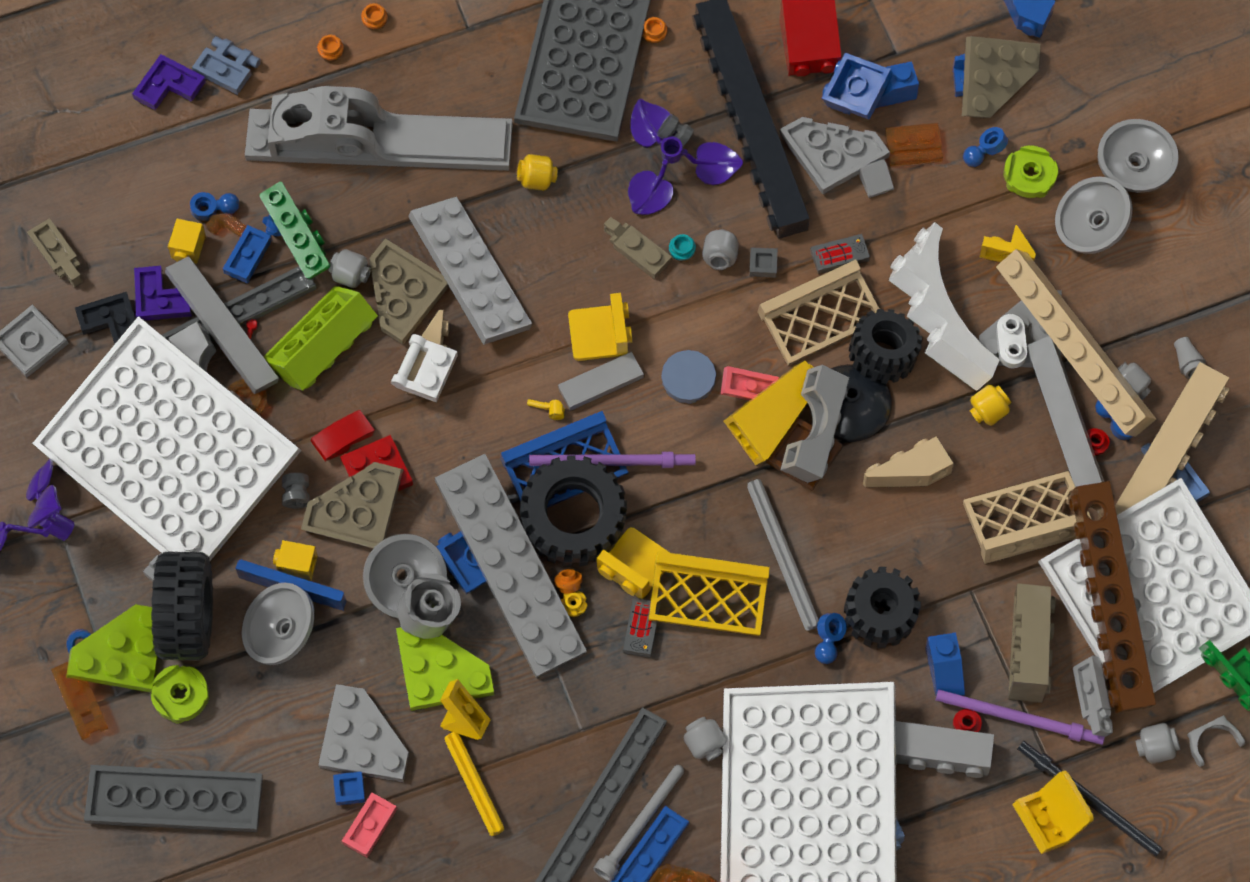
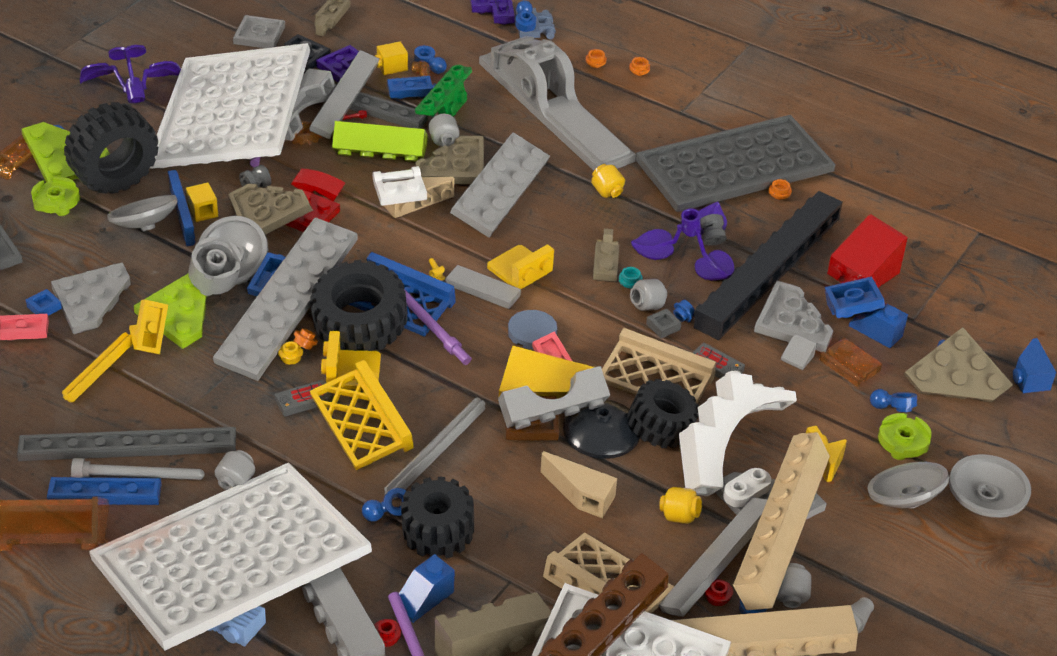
camera: 50 degrees right, 25 degrees down
(210, 62) = (525, 19): none -> blue plate
(759, 234) = (683, 311): none -> blue plate

